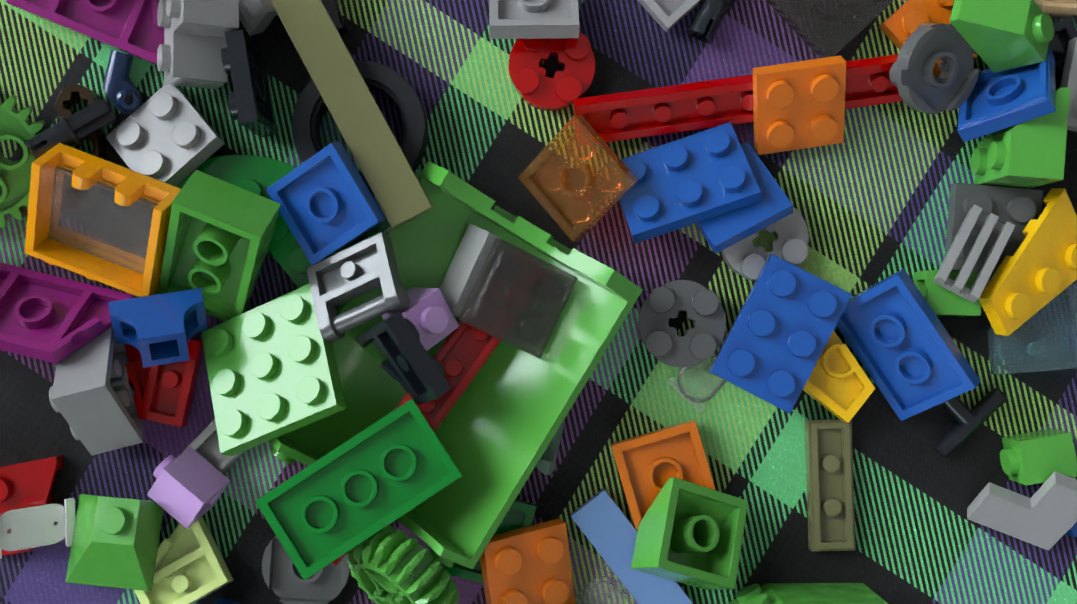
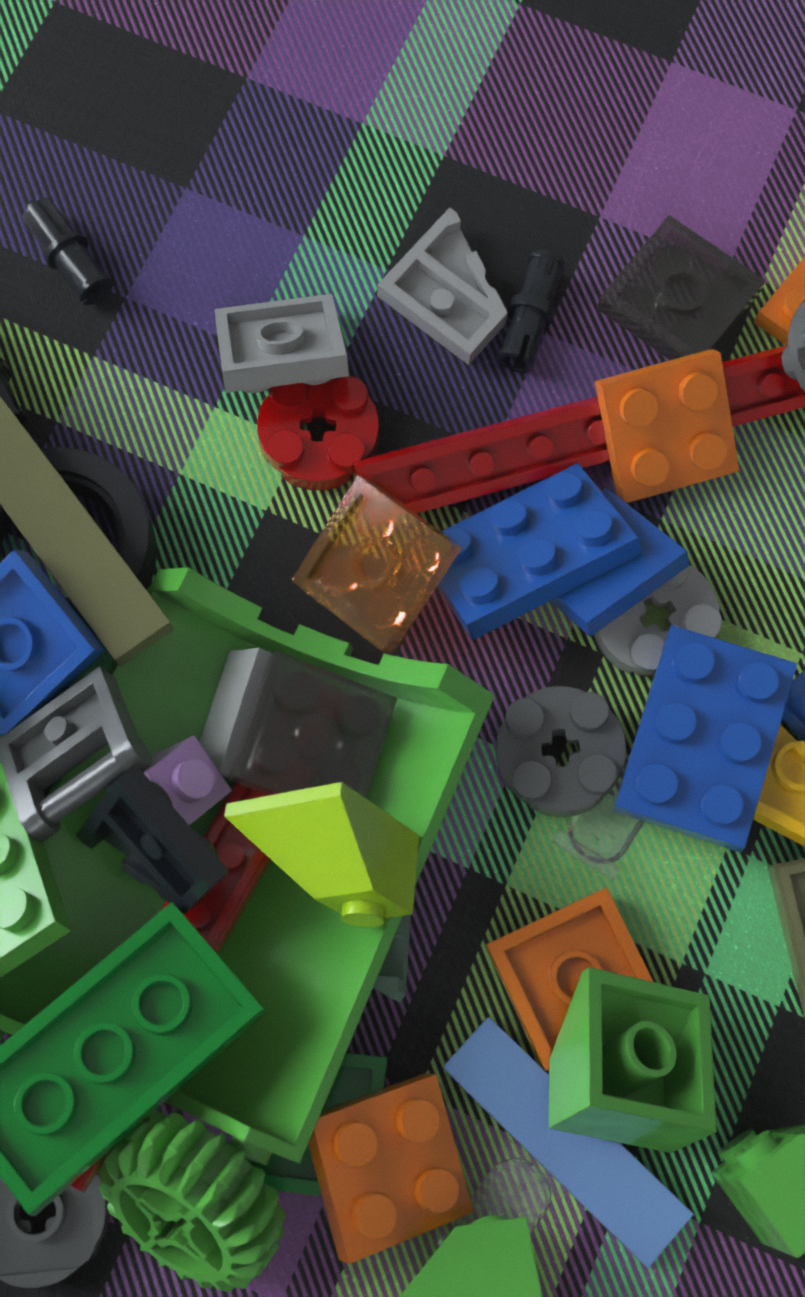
camera: 10 degrees left, 15 degrees down
(522, 384) = (336, 849): none -> lime slope

